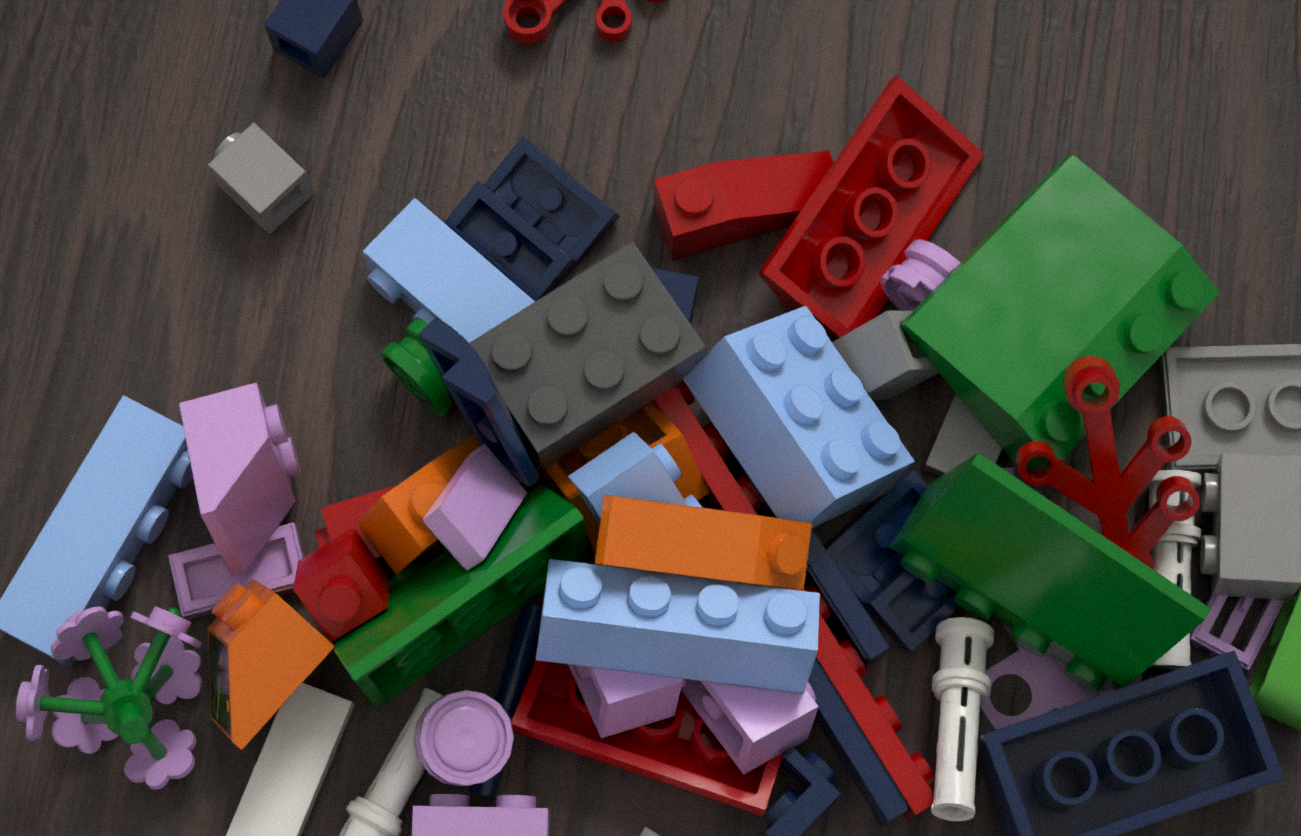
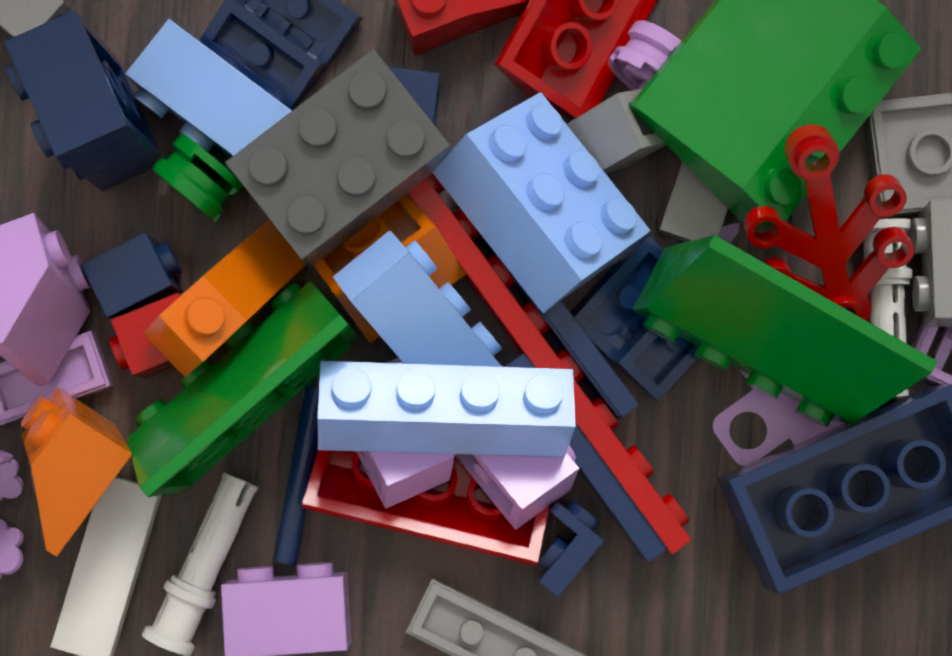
camera: 10 degrees left, 10 degrees up
(317, 276) = (81, 102): none -> dark blue brick
(342, 584) = (134, 393): red brick -> none
(348, 463) = (133, 275): none -> dark blue brick
(463, 738) = (261, 520): lavender wheel -> none
(475, 507) = (247, 316): lavender tile -> none
(478, 399) = (243, 214): dark blue slope -> none
(703, 542) = (461, 333): orange slope -> none
(961, 690) = (705, 435): white pin -> none

